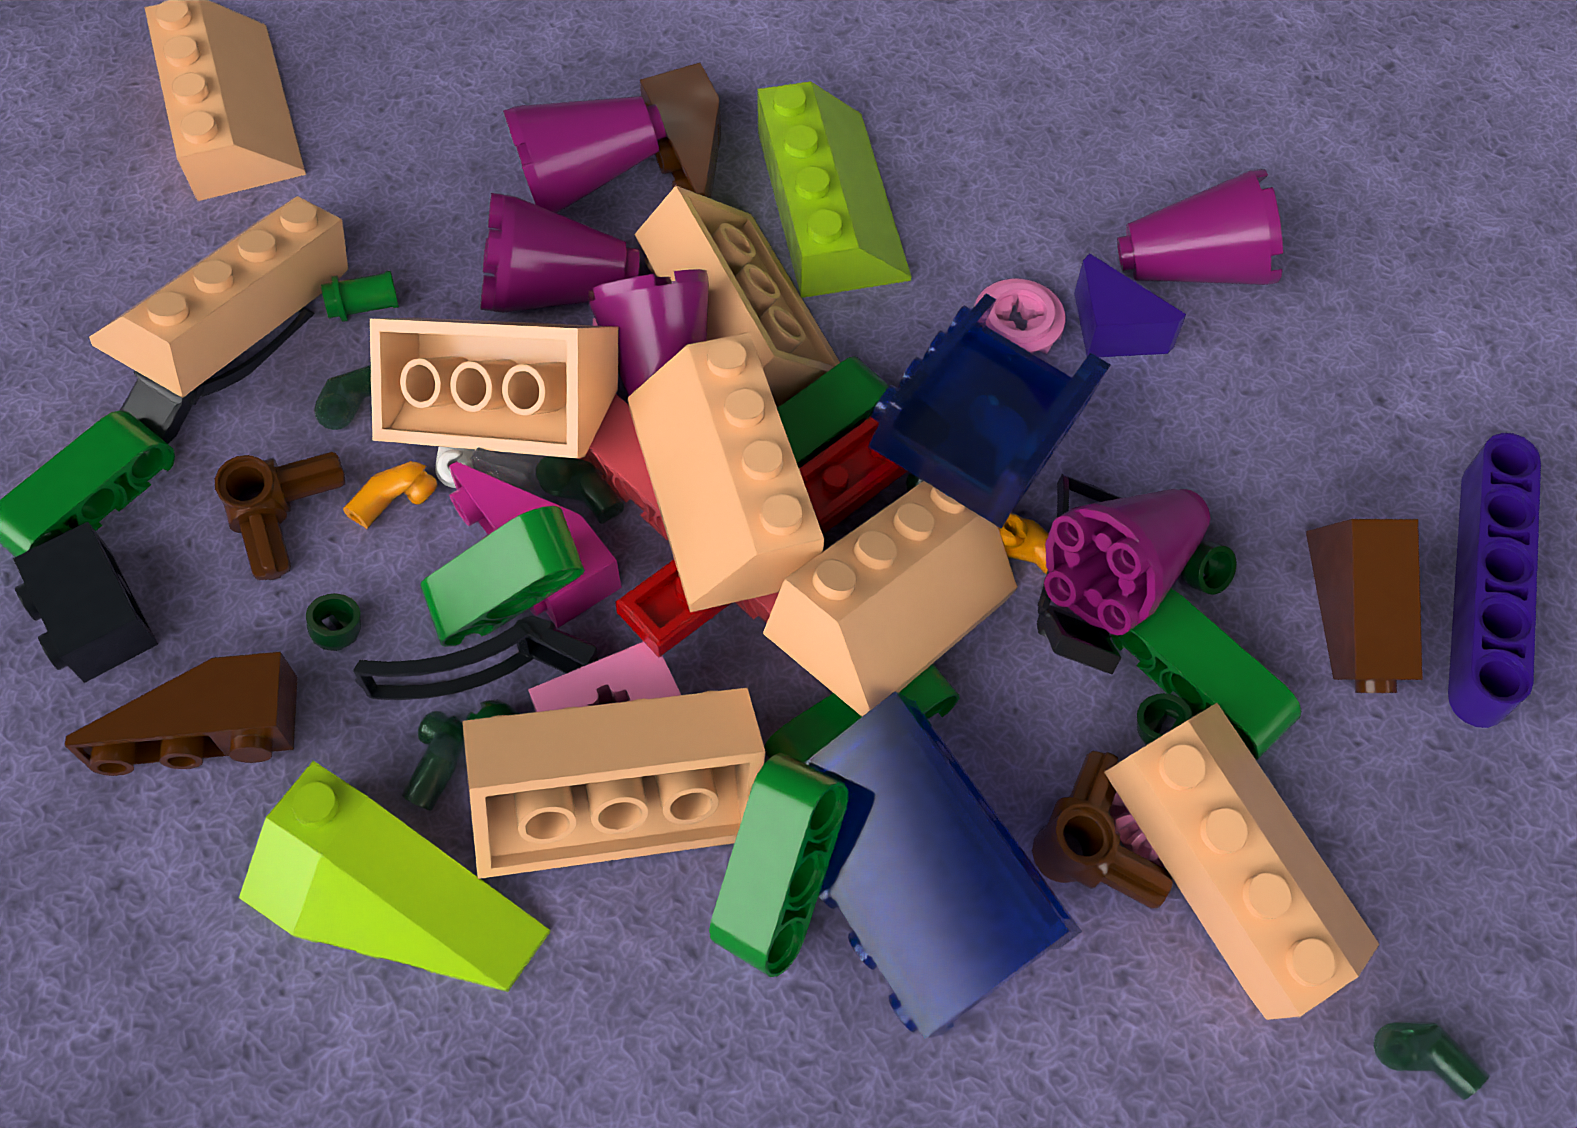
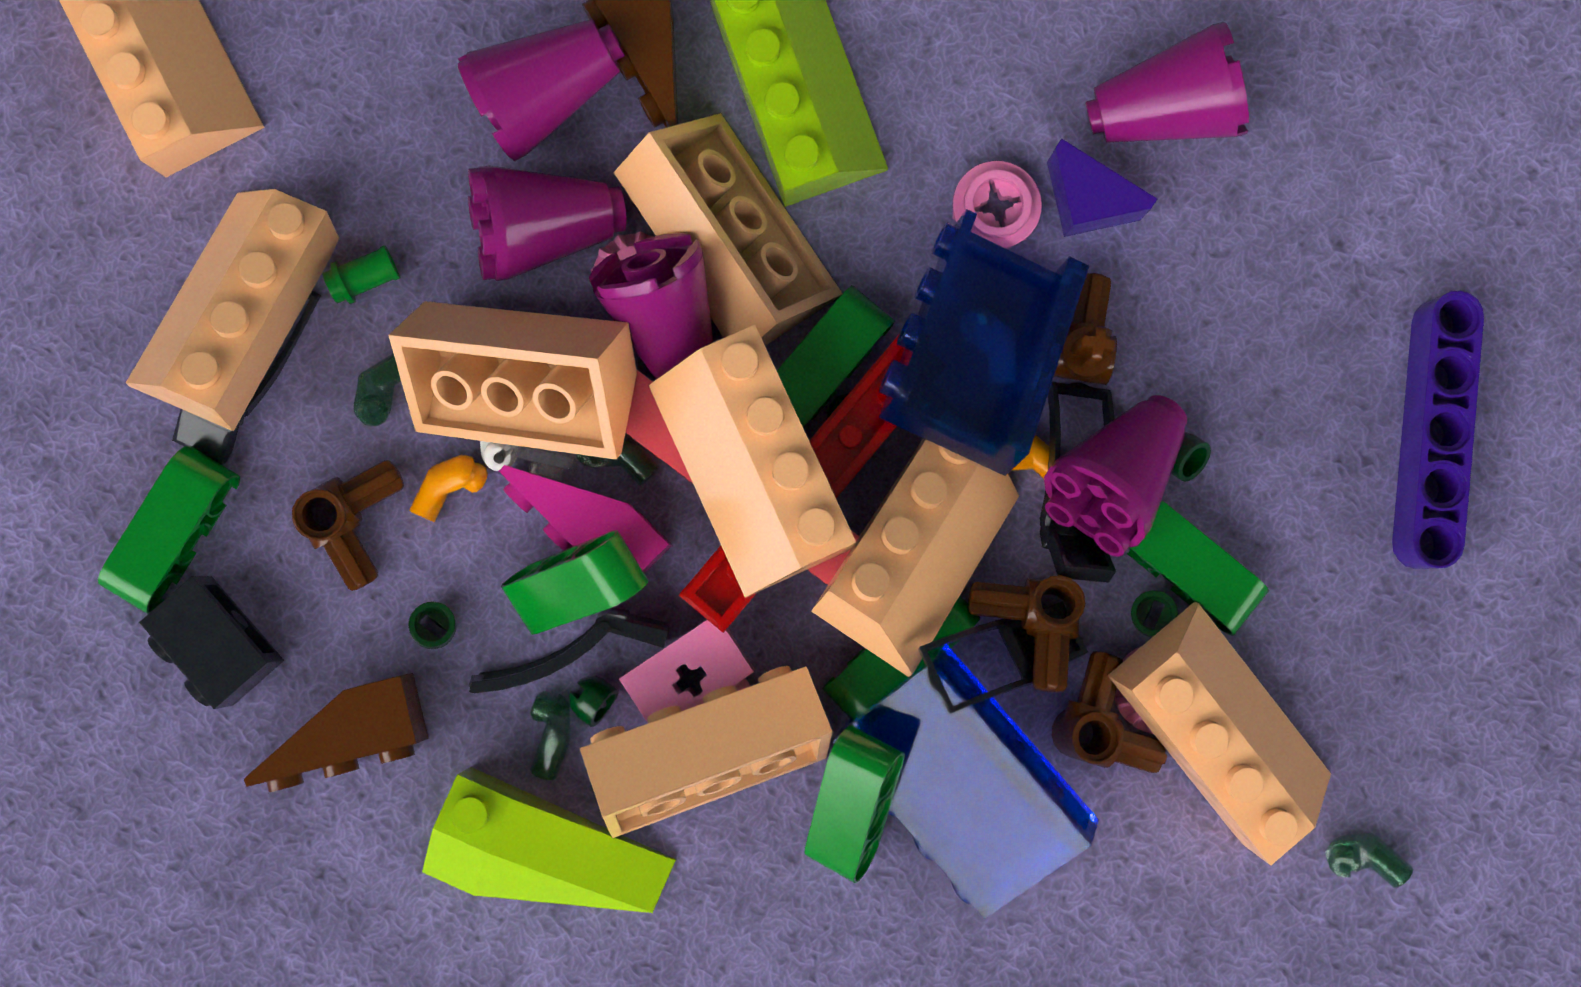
camera: 10 degrees left, 25 degrees up
(1018, 737) = (1019, 646): none -> black piece
(1039, 692) = (1050, 634): none -> reddish brown axle
(1103, 442) = (1089, 345): none -> reddish brown axle
(1370, 600) = (1326, 474): reddish brown slope -> none

